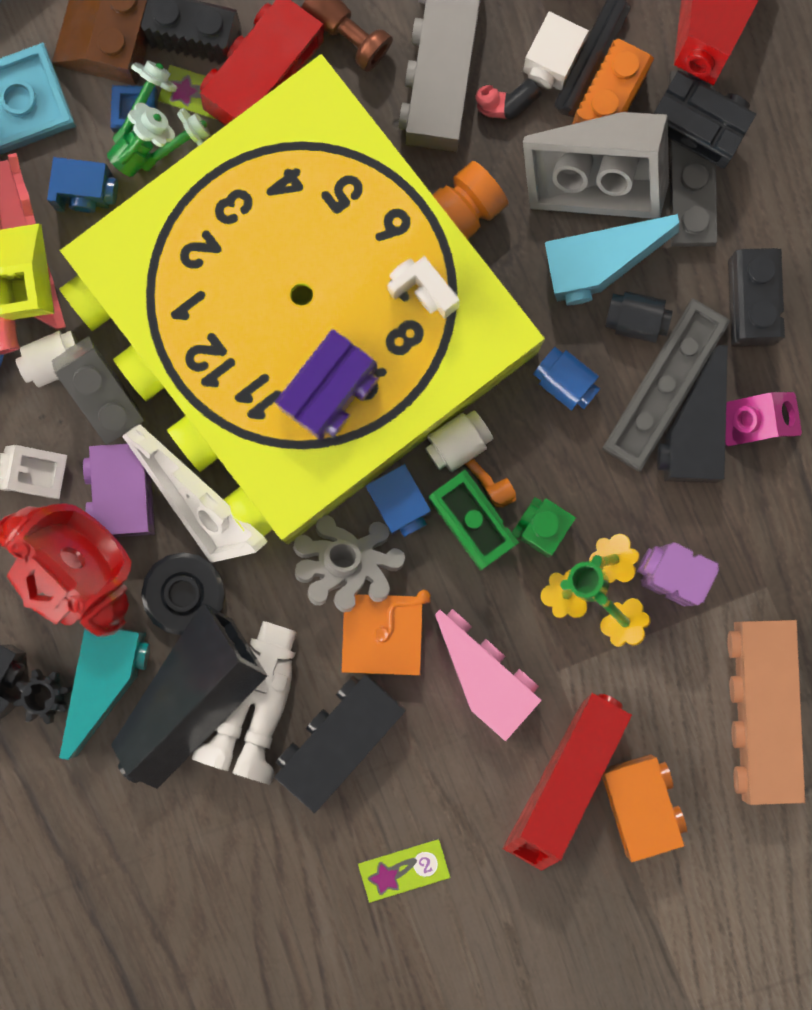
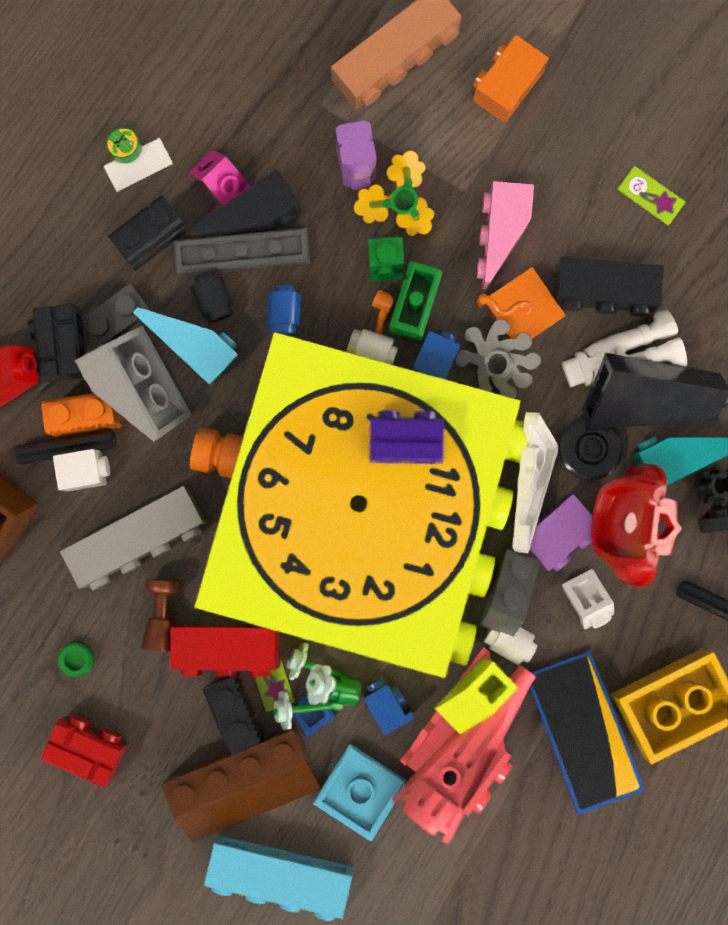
camera: 130 degrees left, 0 degrees up
(432, 290) = (297, 419): white bracket -> none
(505, 105) = (137, 477): arm -> none
(568, 782) = (528, 131): red slope -> none

